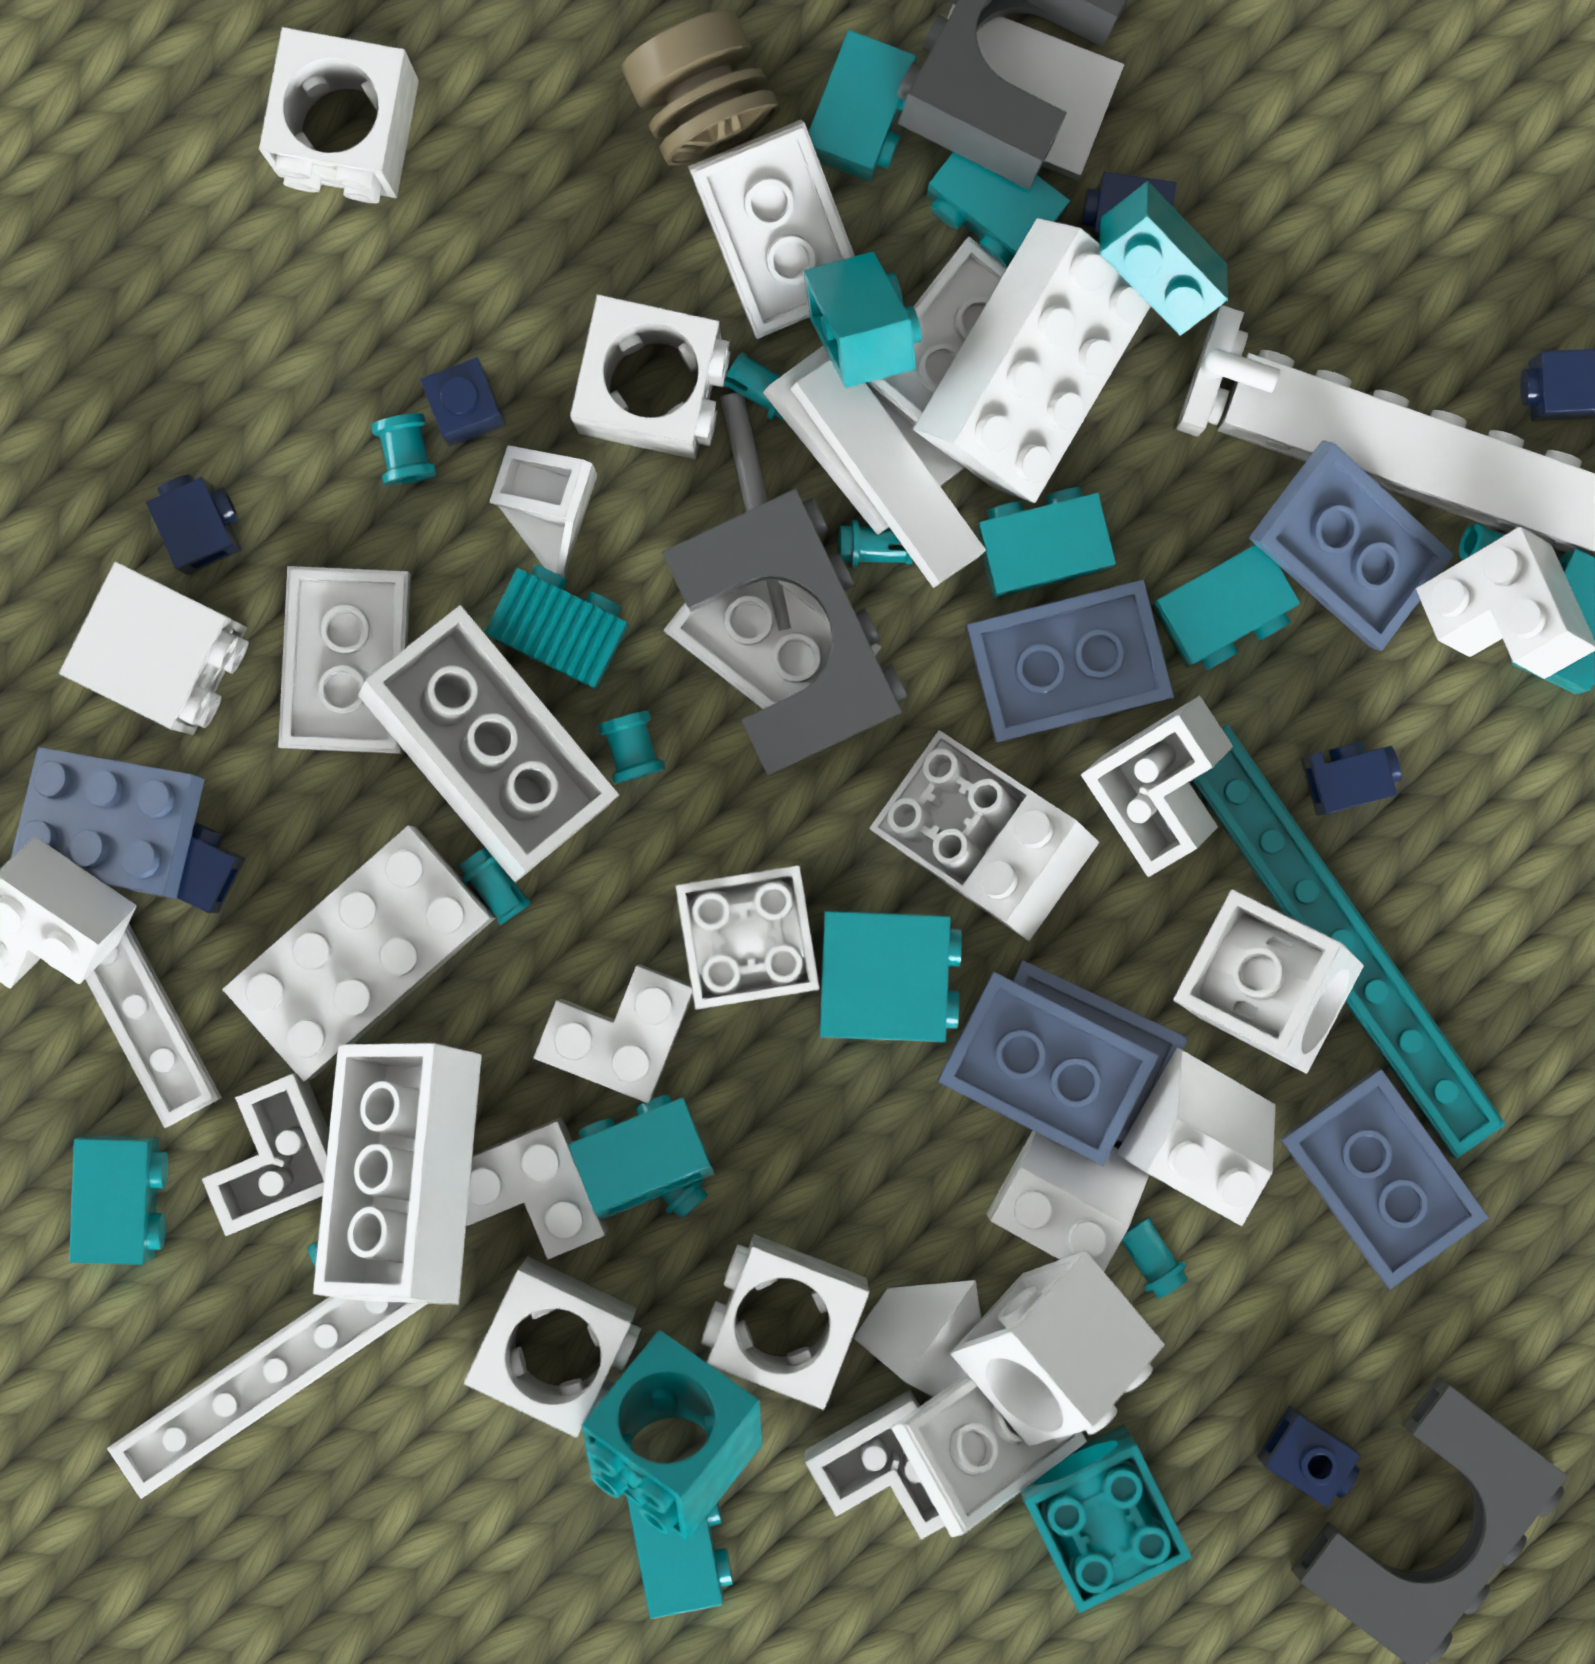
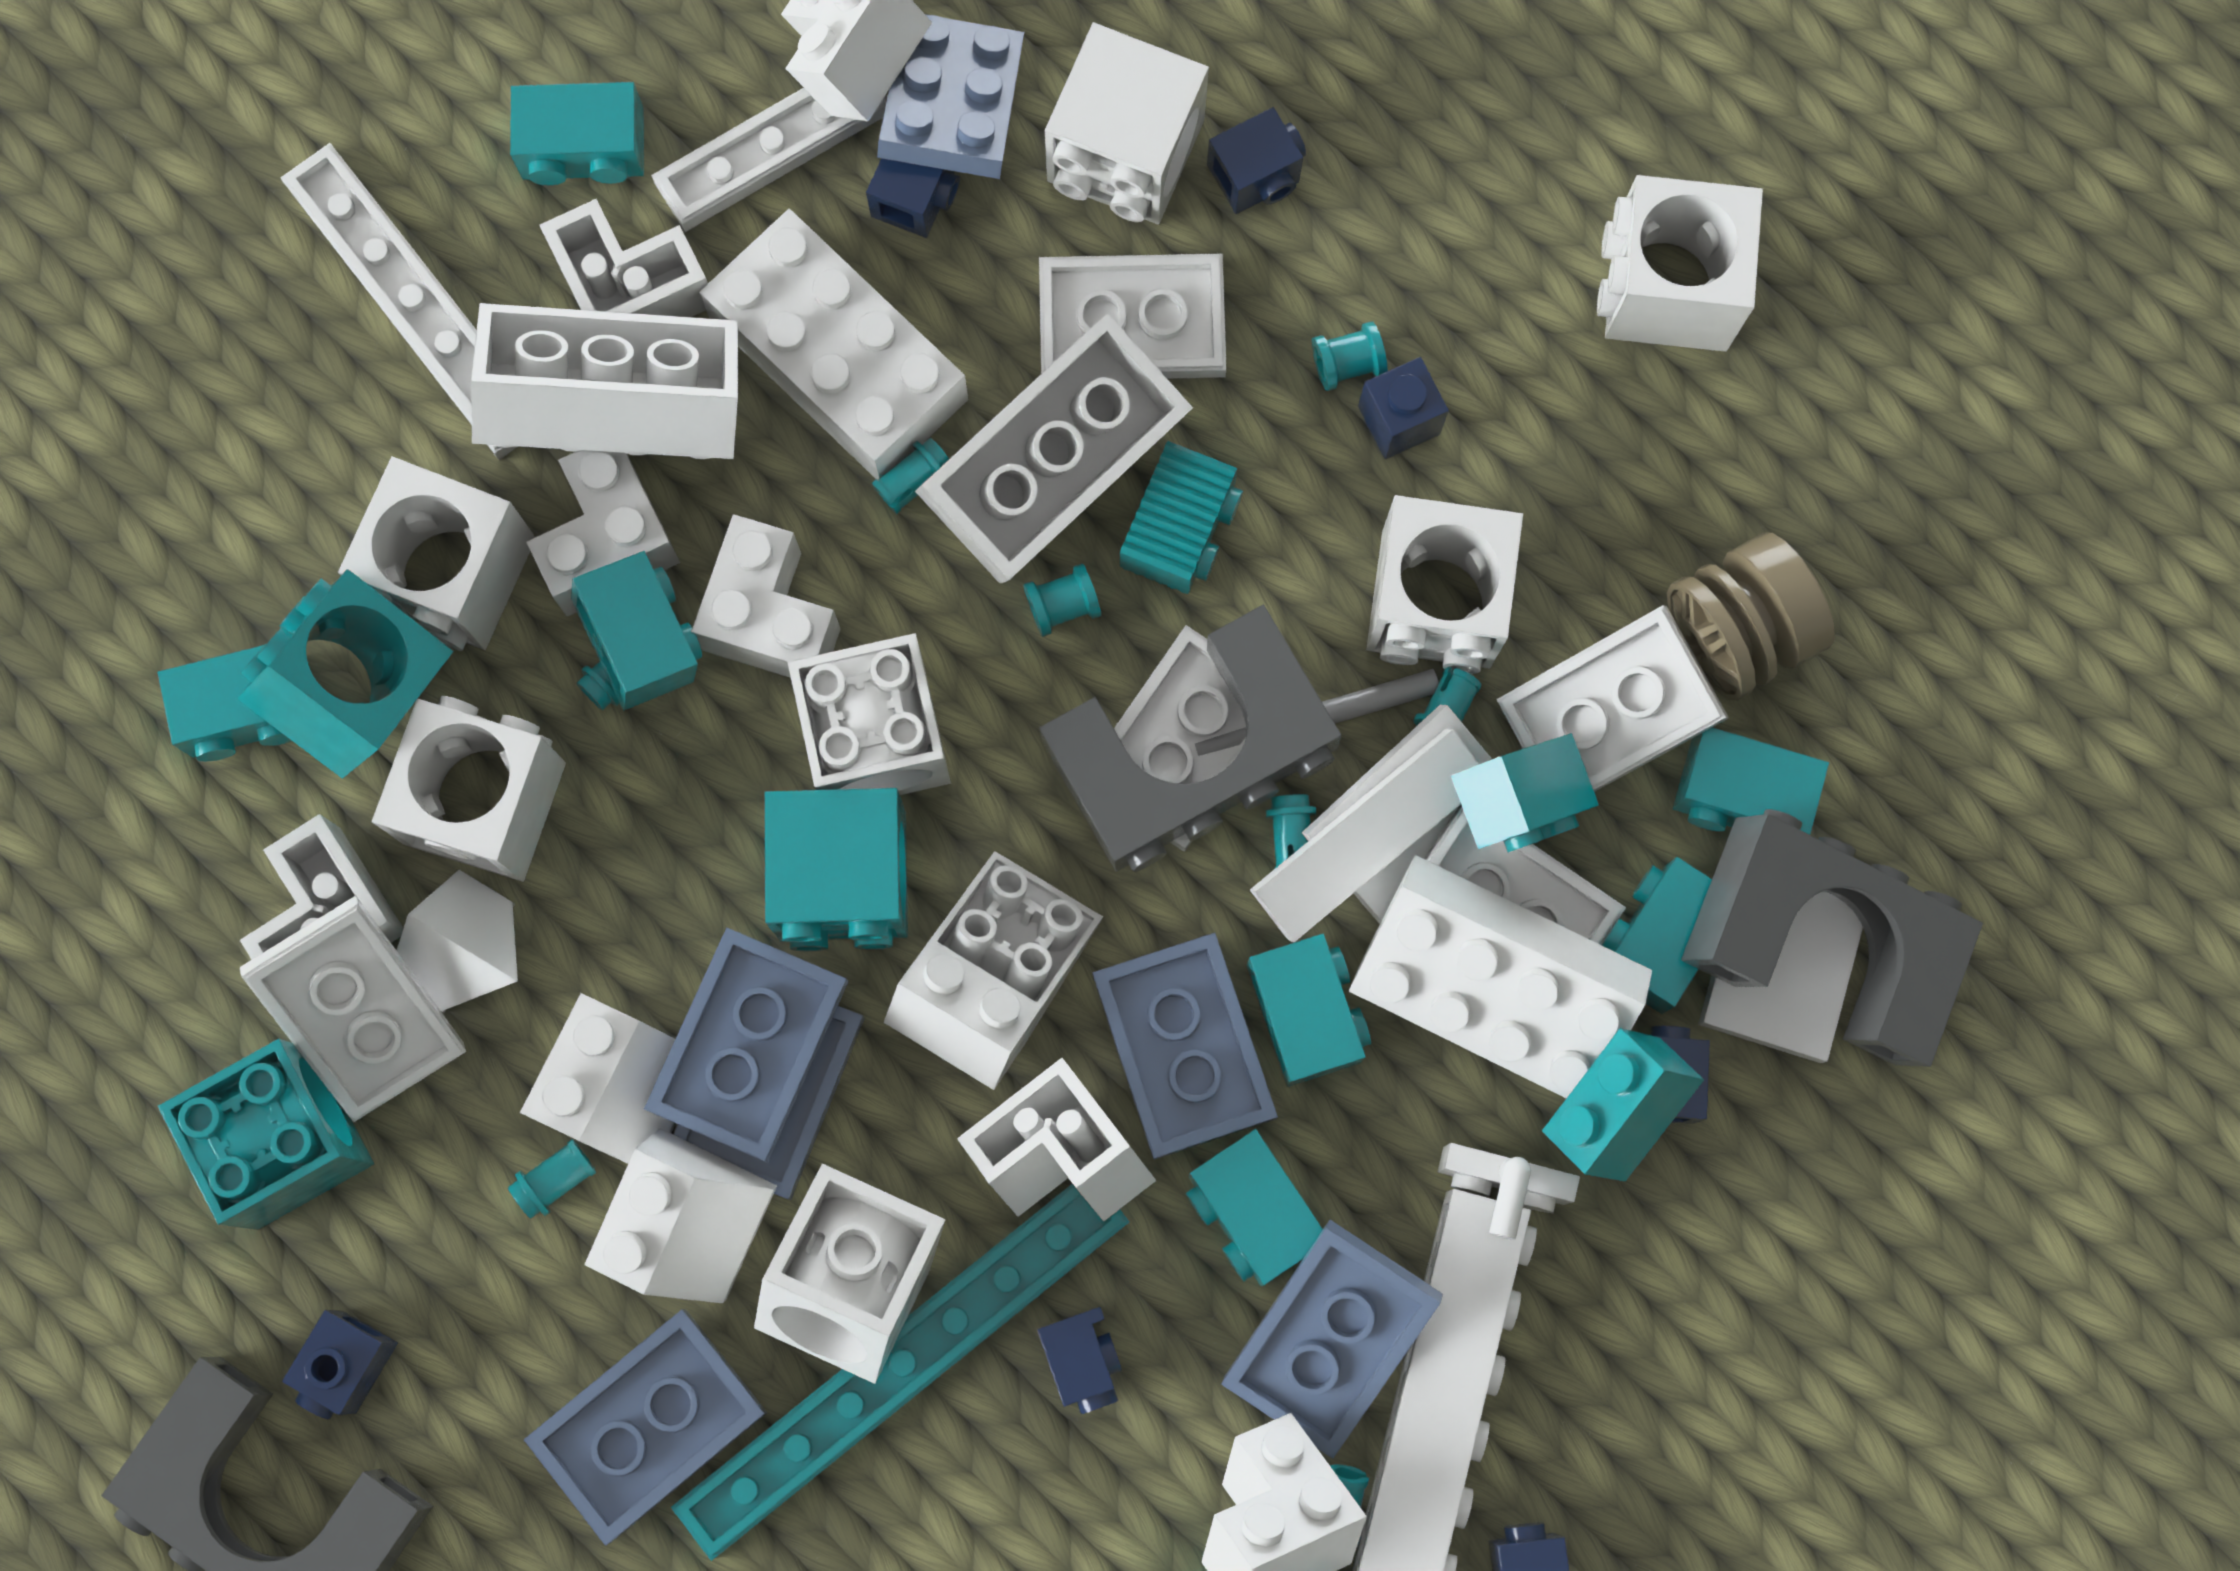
camera: 85 degrees right, 10 degrees down
(545, 501) = (1307, 502): white slope -> none
(1059, 1350) = (442, 1073): white brick -> none

